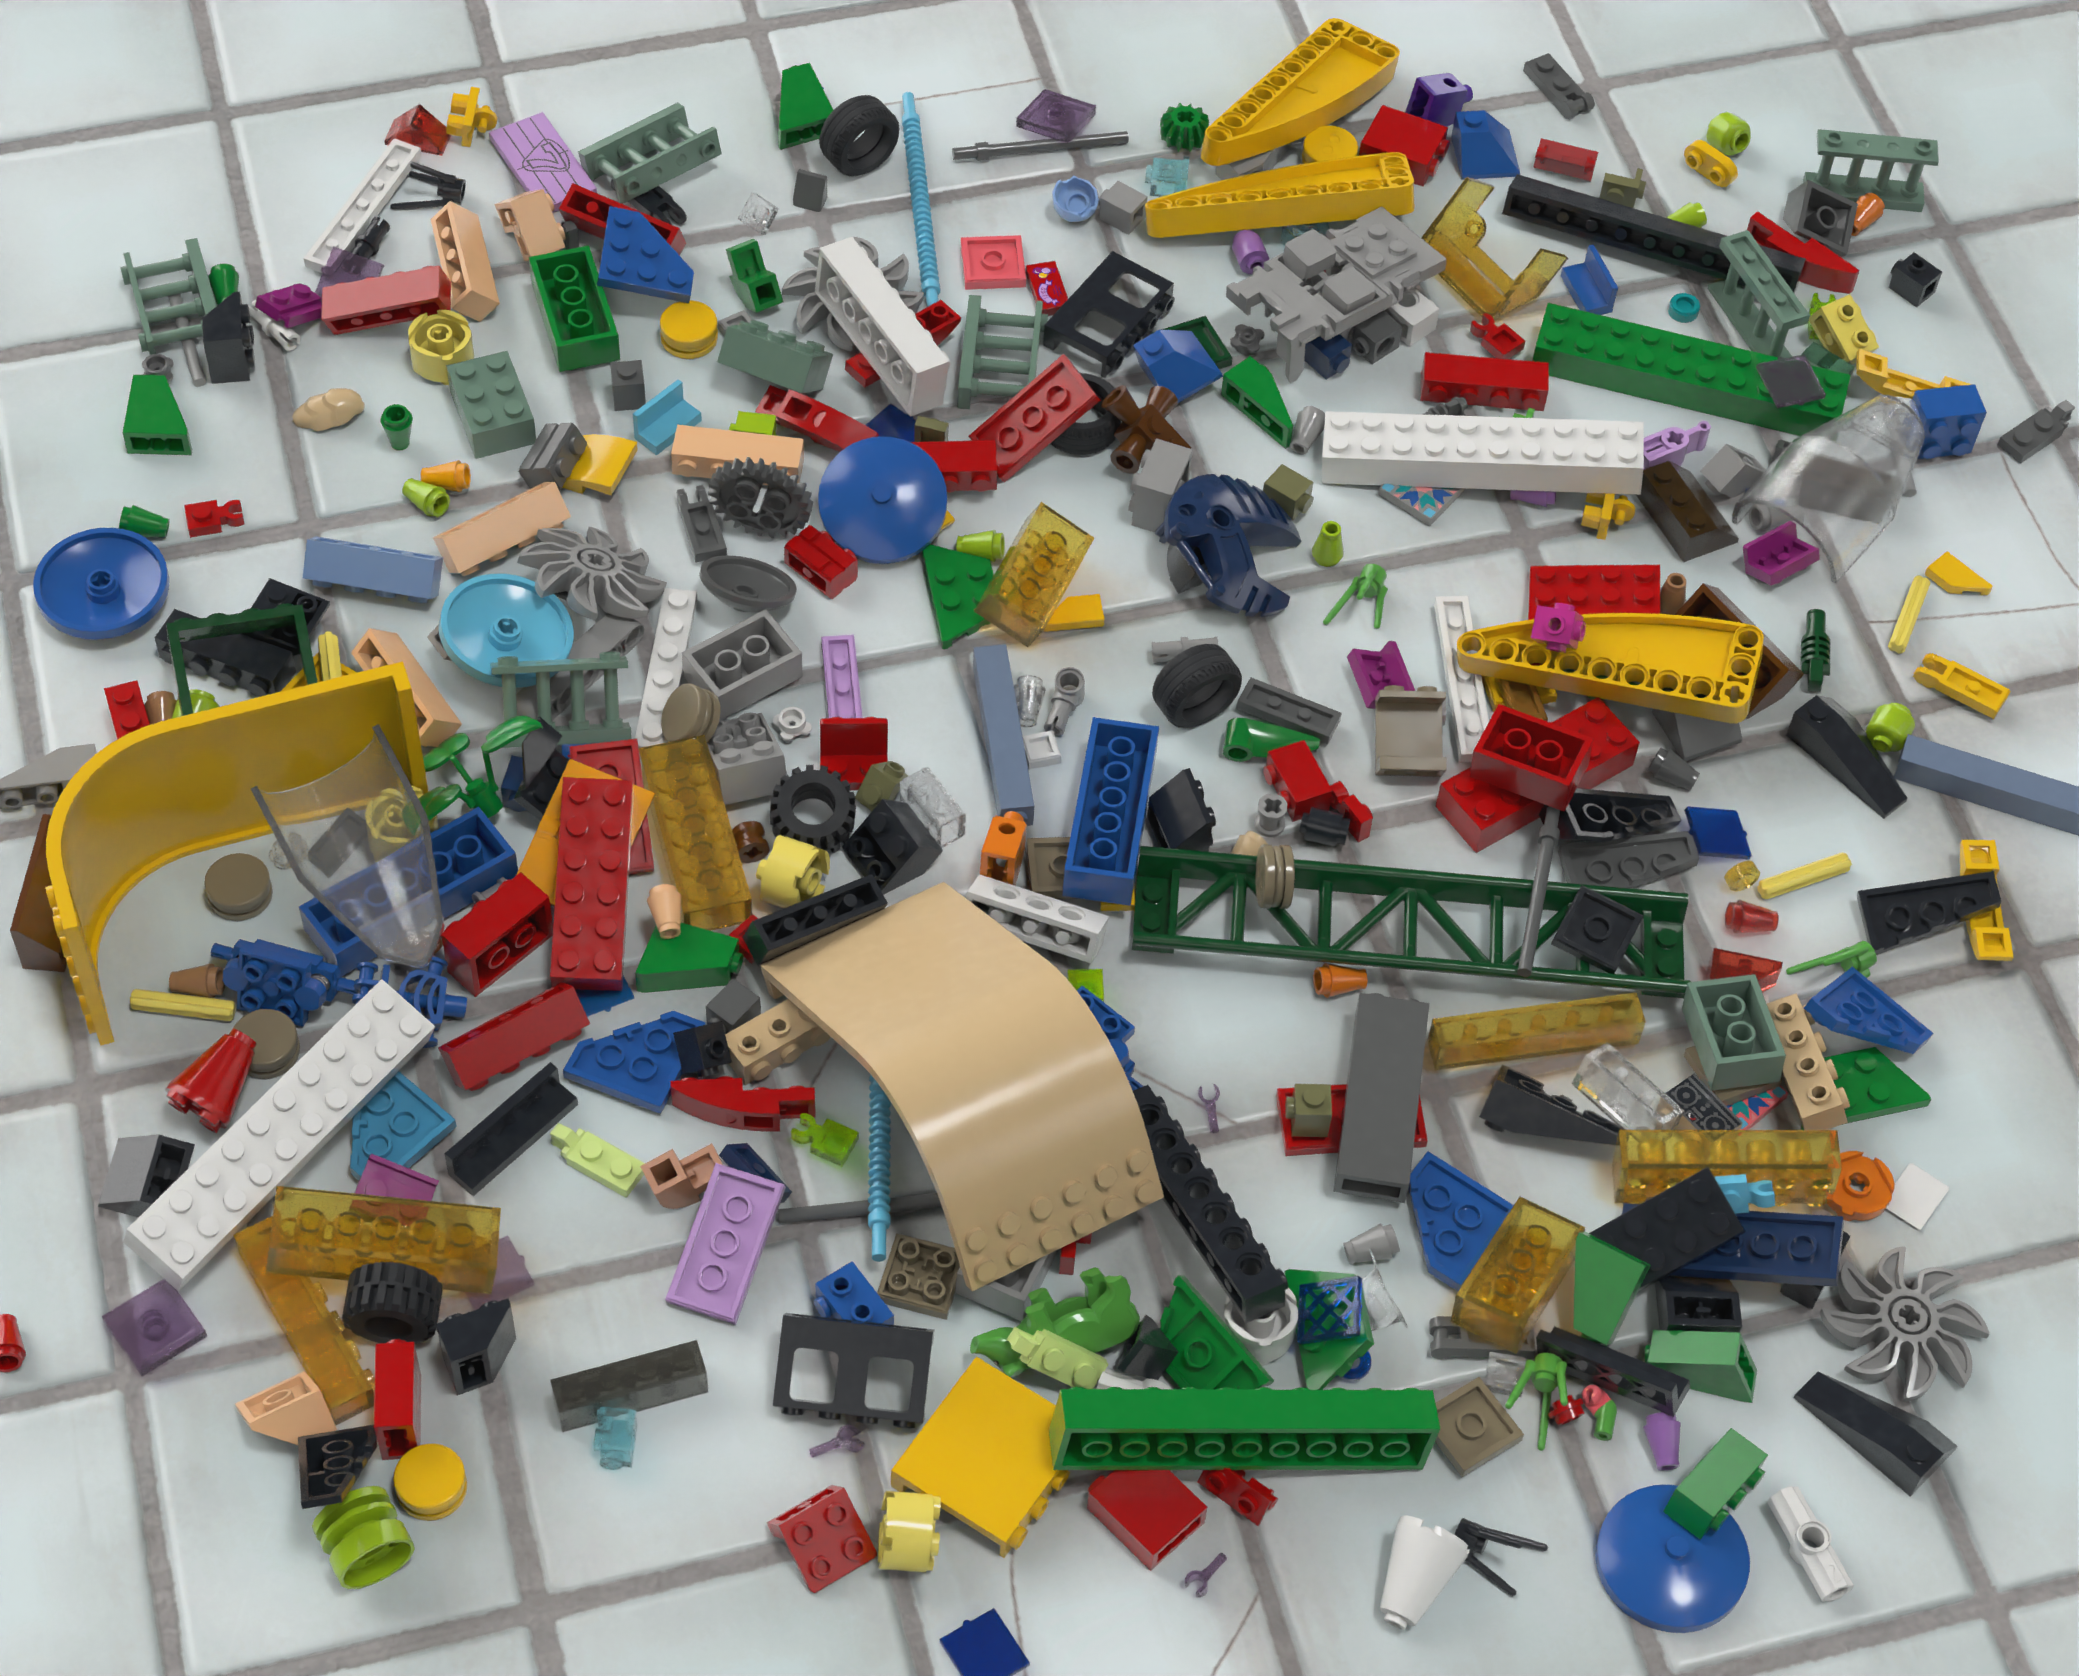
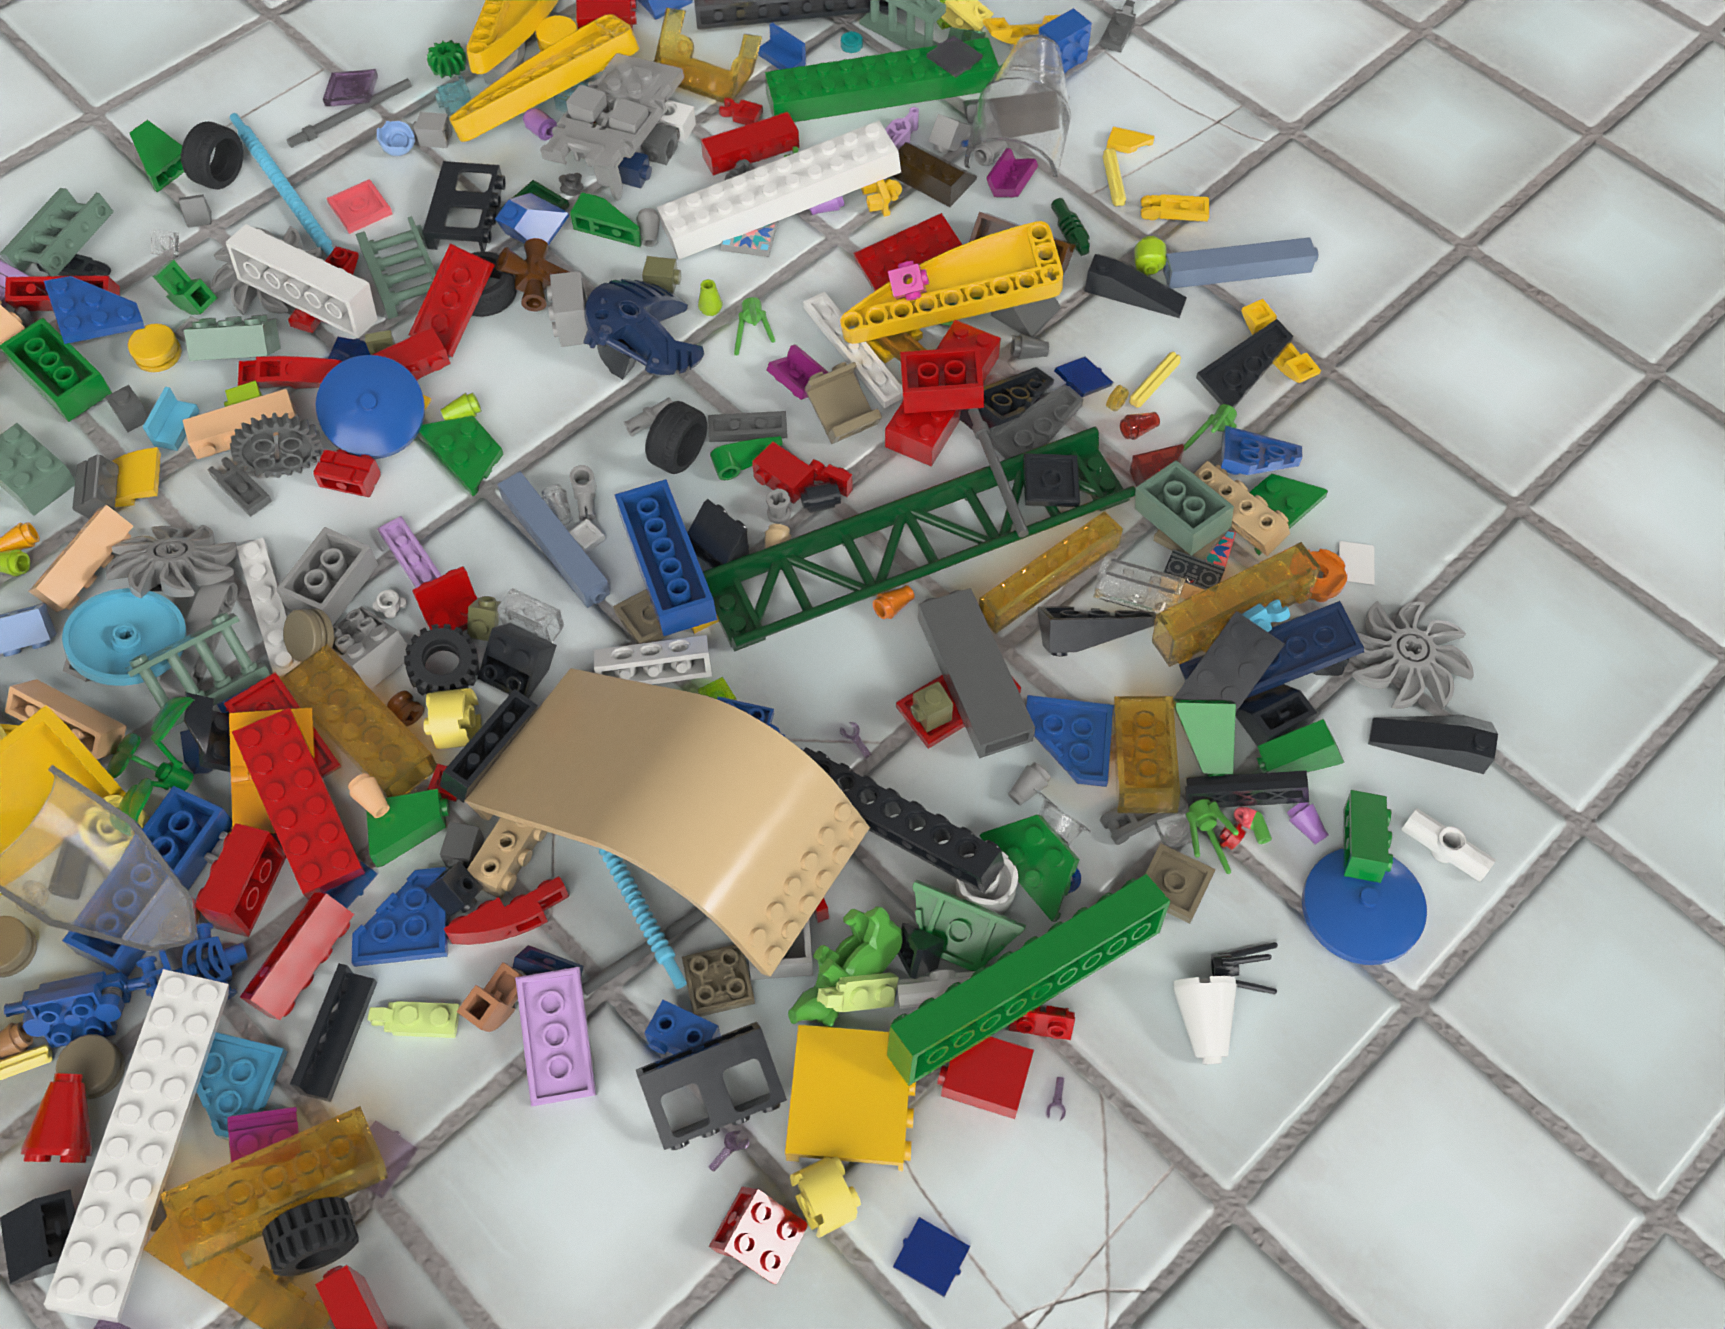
camera: 25 degrees left, 5 degrees up
(477, 1344) = (399, 1231): black slope -> none
(615, 1437) = (553, 1245): clear light blue brick -> none
(630, 1384) = (540, 1195): clear smoke brick -> none
(747, 583) = (299, 514): dark grey dish -> none
(829, 1141) = (592, 910): clear neon green plate -> none
(1004, 841) = (601, 618): orange torso -> none
(1034, 574) = (513, 411): clear yellow brick -> none
(1046, 286) = (407, 205): red tile -> none
(1077, 613) = (557, 426): yellow tile -> none
(1275, 876) = (812, 548): dark tan head -> none
(1356, 1306) = (1054, 838): window -> none
(1673, 594) = (960, 227): medium nougat cone -> none

